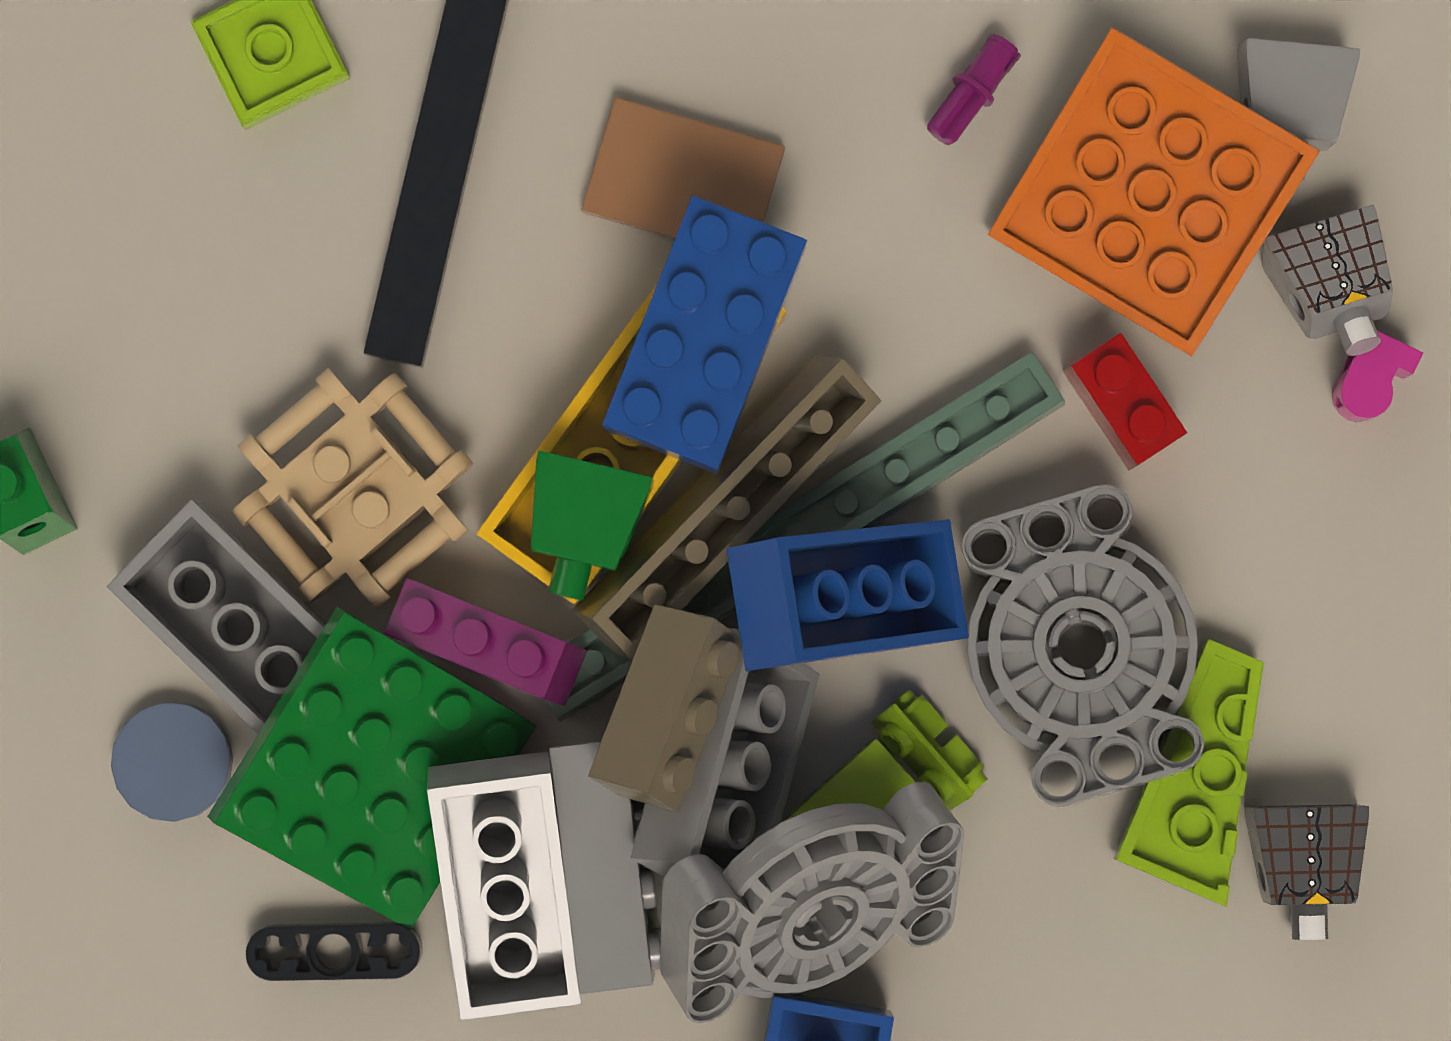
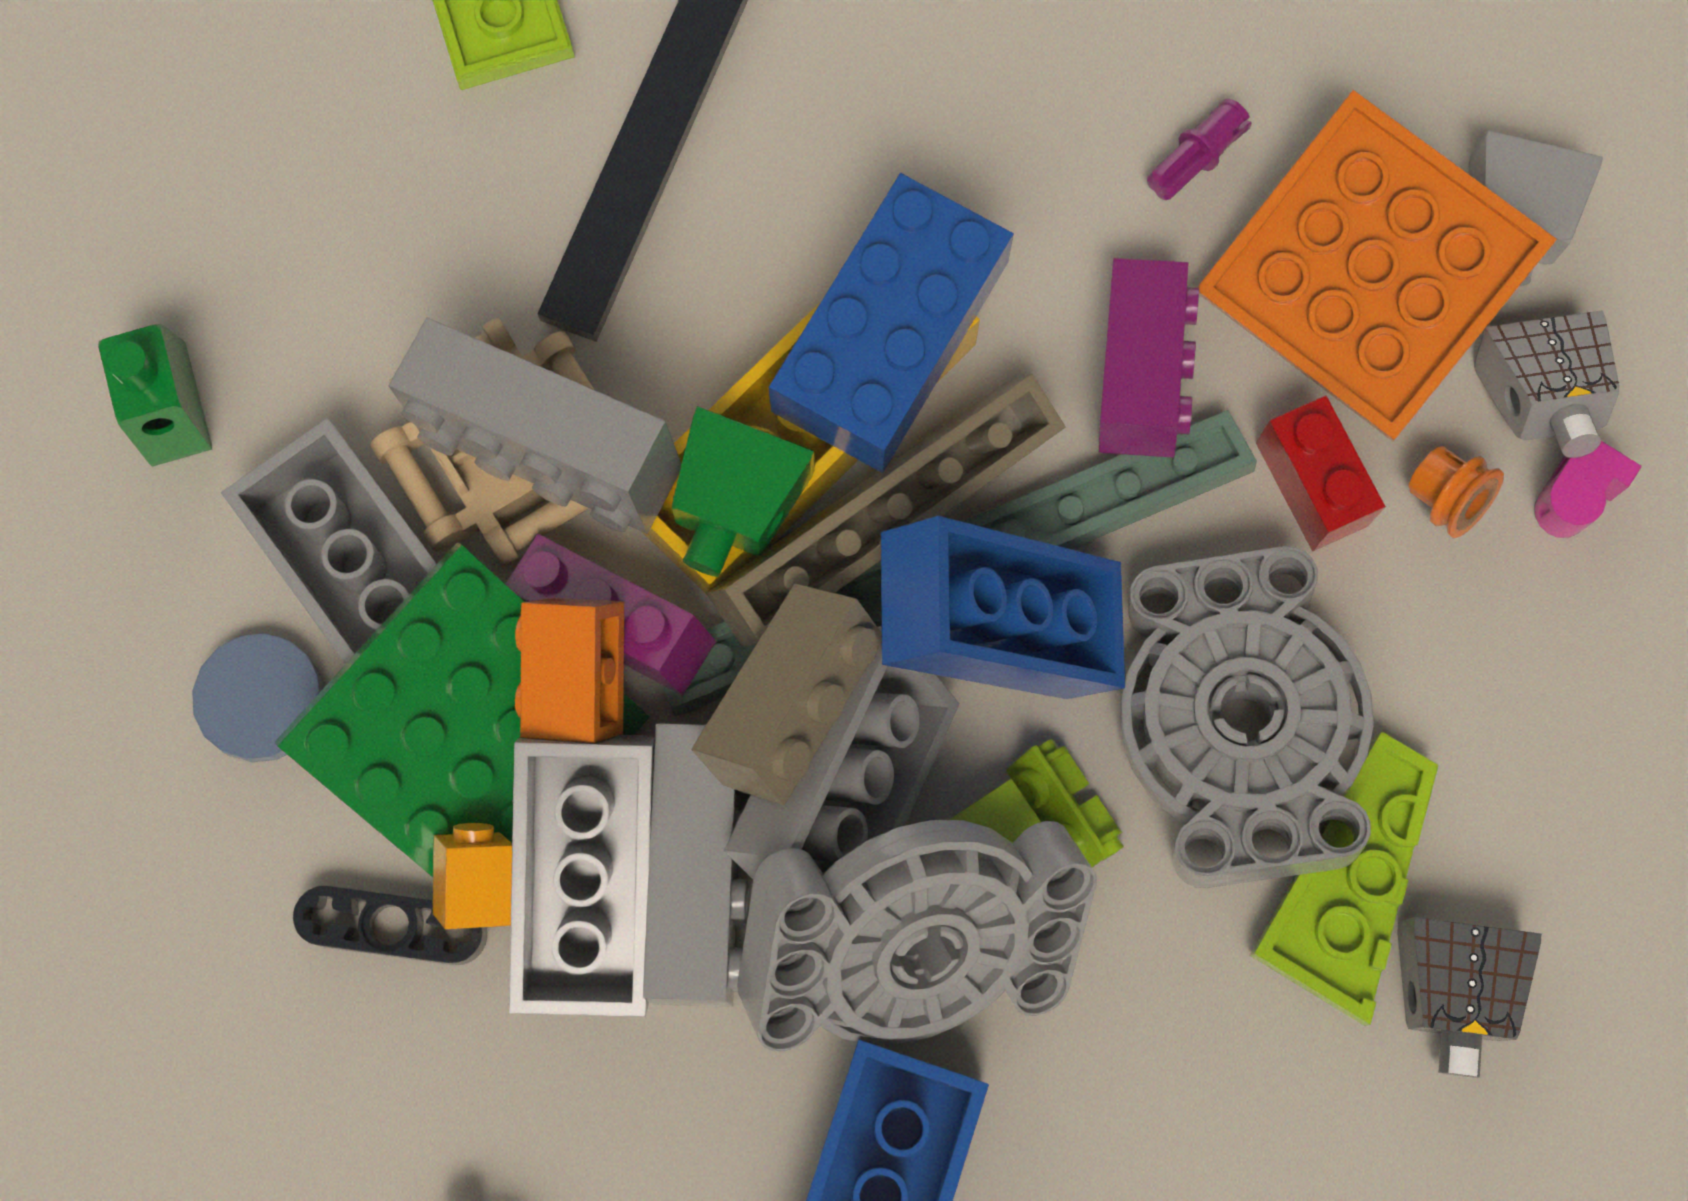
camera: 10 degrees right, 10 degrees down
(392, 490) = (536, 427): none -> light grey brick
(406, 906) = (472, 877): none -> light orange brick
(463, 710) = (571, 669): none -> orange brick
(660, 159) = (858, 165): medium nougat tile -> none
(949, 315) = (1147, 358): none -> magenta brick
(1253, 397) = (1455, 489): none -> orange piece

